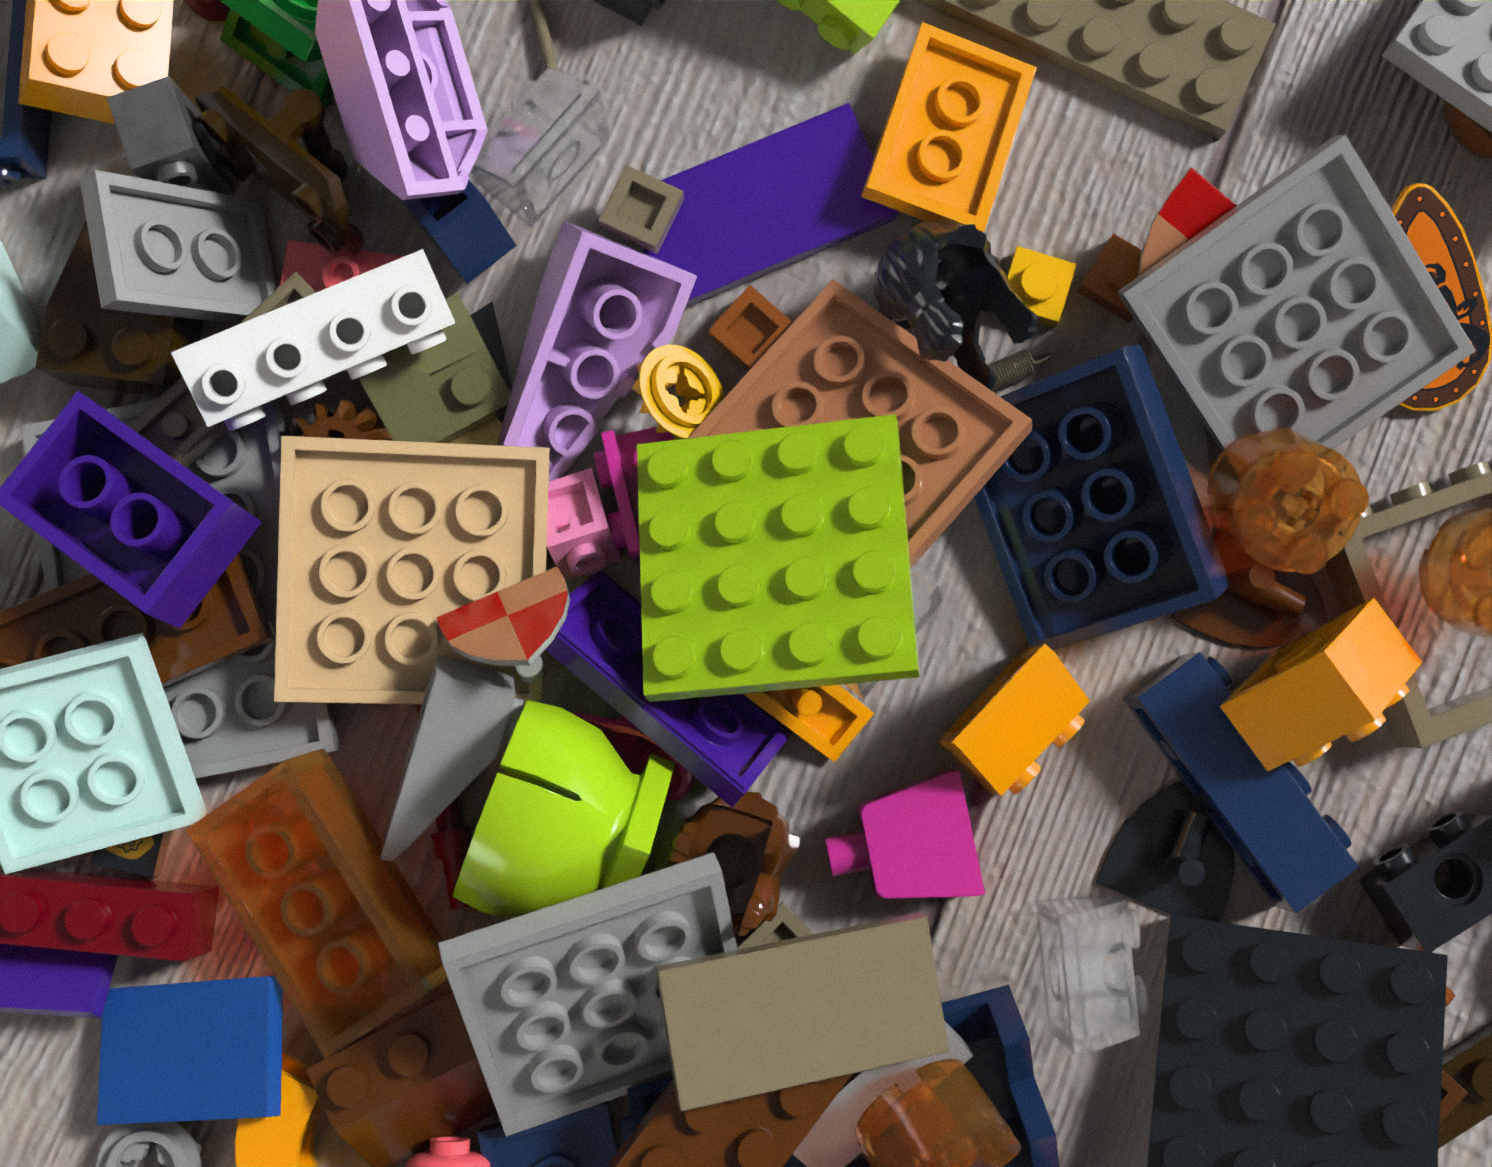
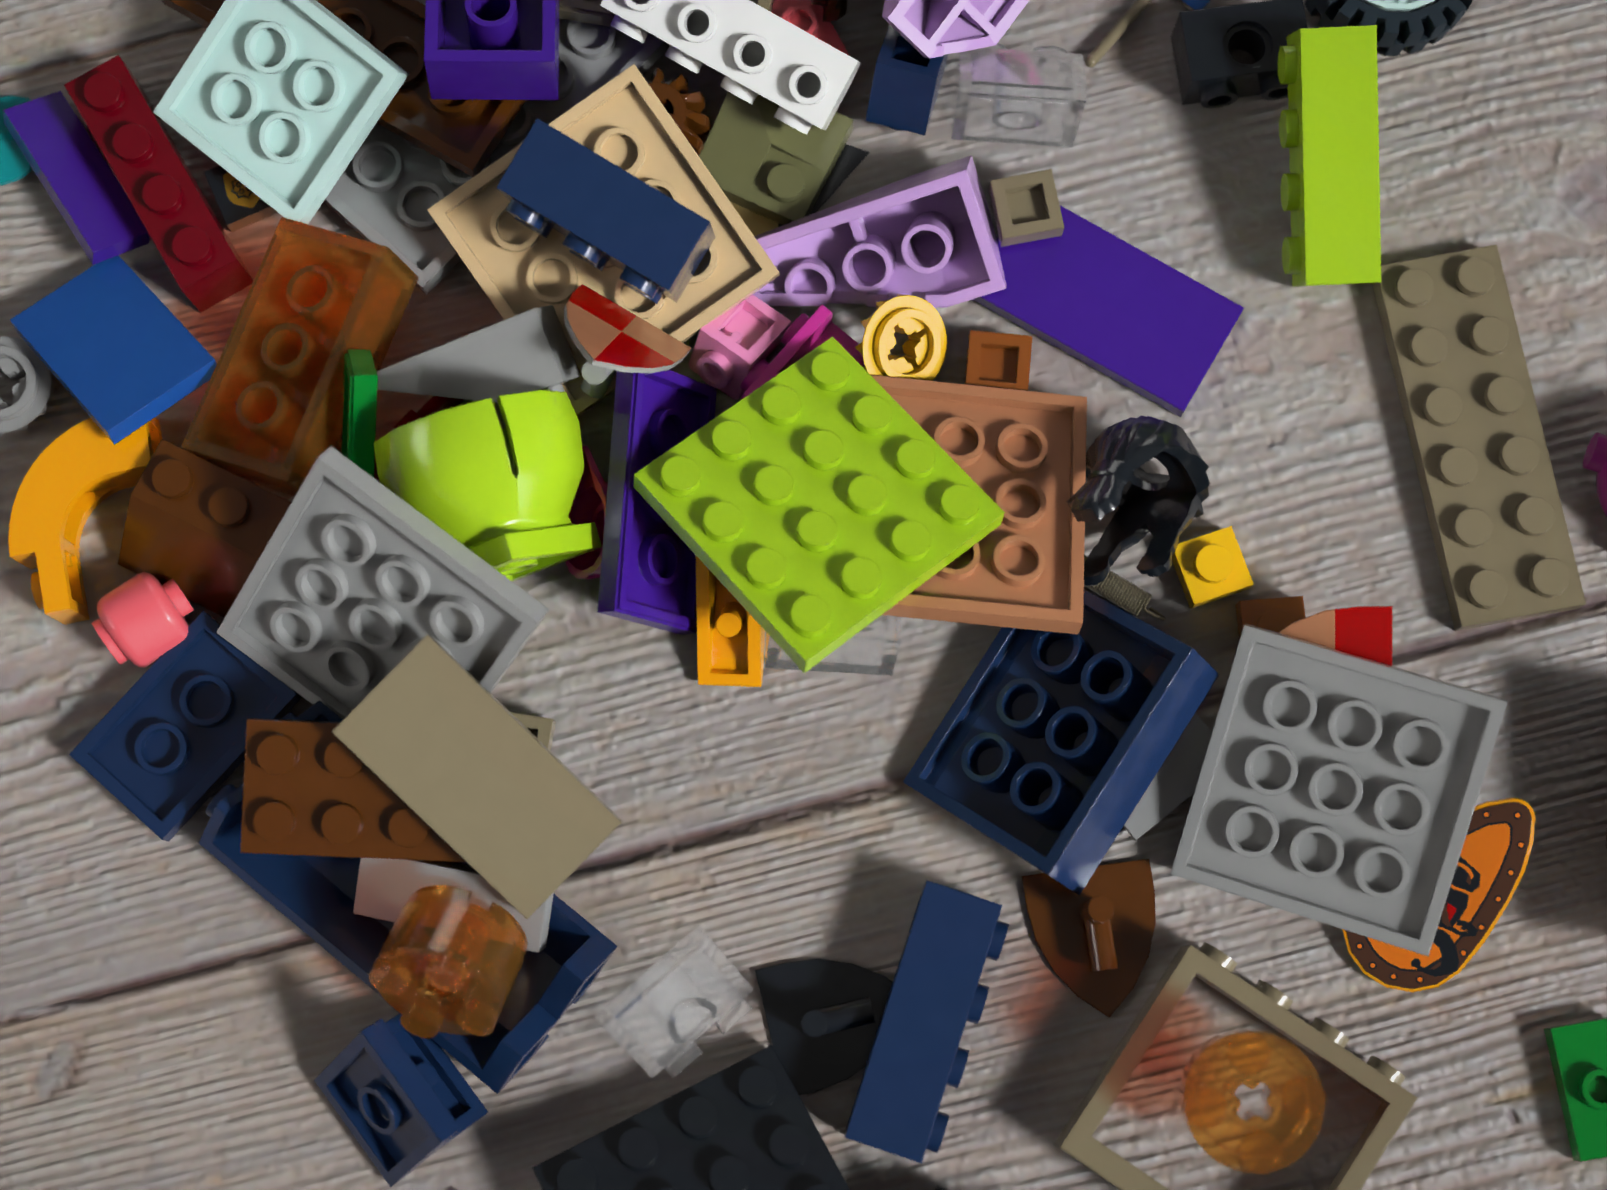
camera: 55 degrees right, 5 degrees down
(398, 558) = (605, 213): none -> dark blue brick
(416, 889) = (359, 409): none -> green tile
(770, 837) = (600, 659): reddish brown piece -> none
(913, 841) = (678, 787): dark pink torso -> none
(949, 130) = (1281, 401): light orange plate -> none
(1016, 721) = (834, 798): light orange slope -> none
(1286, 499) = (1156, 912): clear orange brick -> none
(1323, 687) = (1045, 1020): light orange brick -> none

